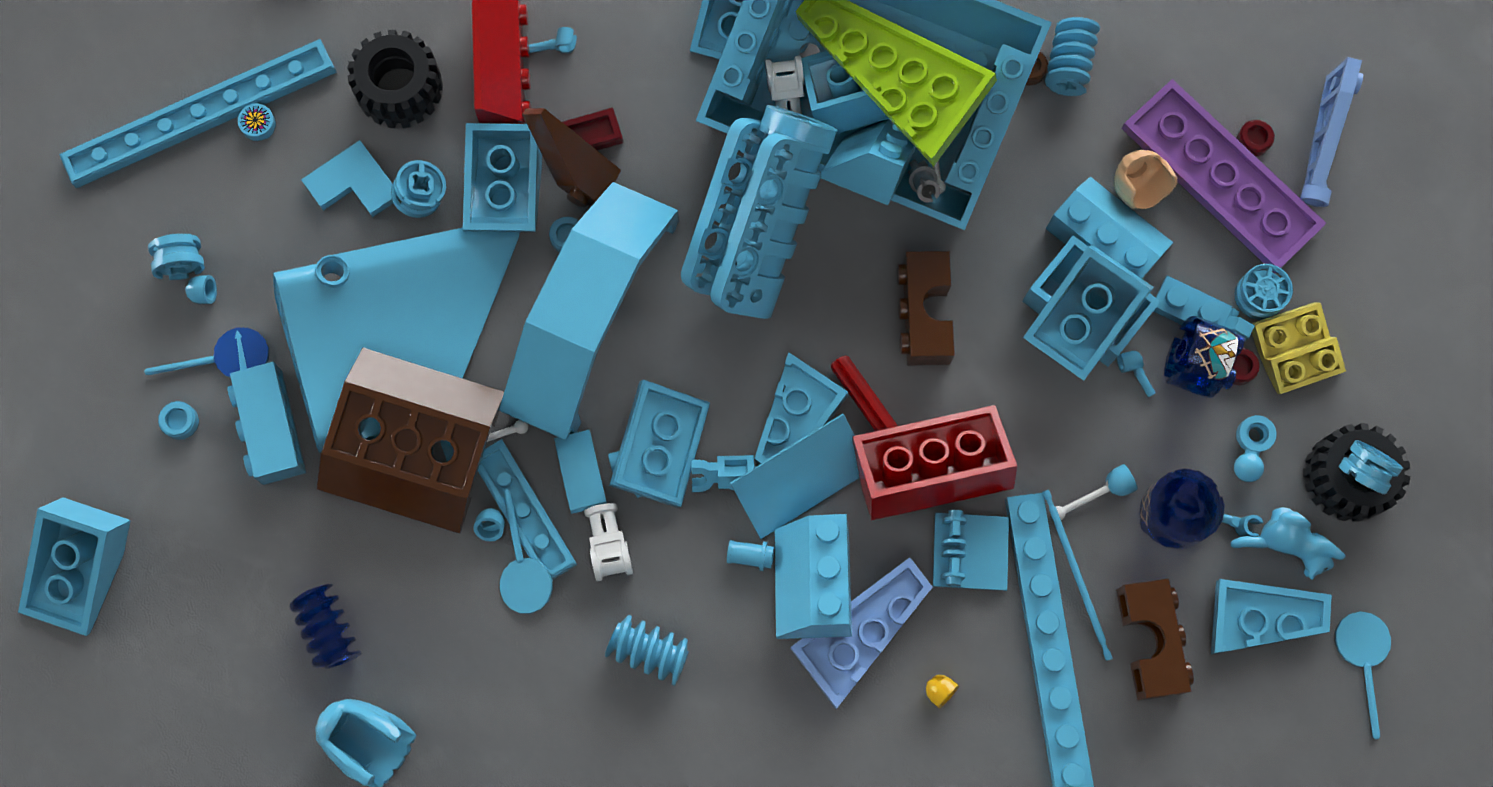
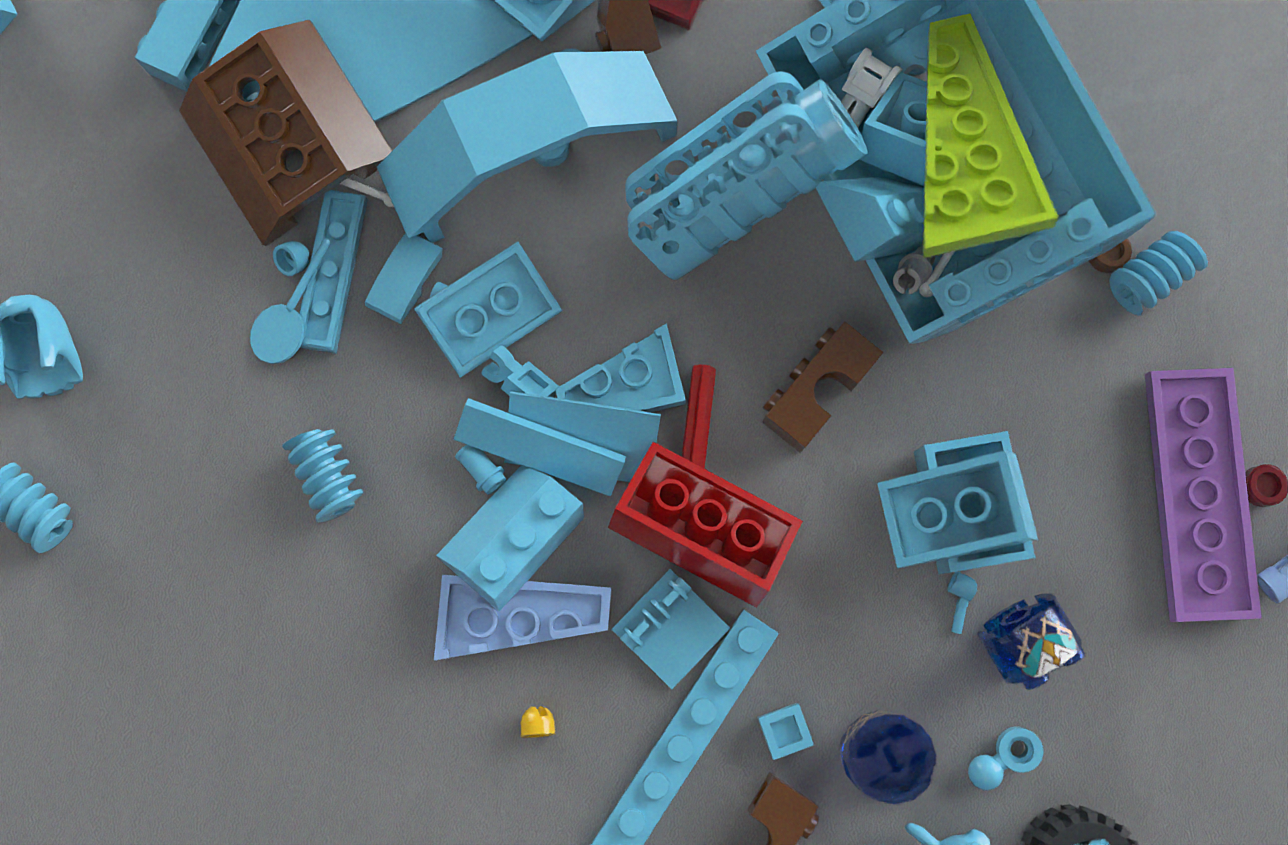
camera: 45 degrees right, 5 degrees up
(323, 628) = (85, 228): clear blue piece -> none
(608, 548) = (370, 356): white connector -> none
(779, 505) = (539, 447): none -> medium azure tile
(1077, 575) = (745, 730): medium azure piece -> none
(1103, 552) = (785, 731): none -> medium azure plate
(1110, 226) = (1051, 454): medium azure slope -> none
(1118, 482) = (854, 682): hinge -> none
(1144, 179) = (1122, 436): light nougat hair -> none
(1182, 301) = (1059, 573): medium azure hinge -> none
(1240, 524) = (933, 814): medium azure hand -> none
(1246, 366) = (1064, 681): dark red tile -> none
(1263, 293) = (1143, 629): medium azure wheel -> none
(1297, 348) = (1130, 706): light yellow slope -> none

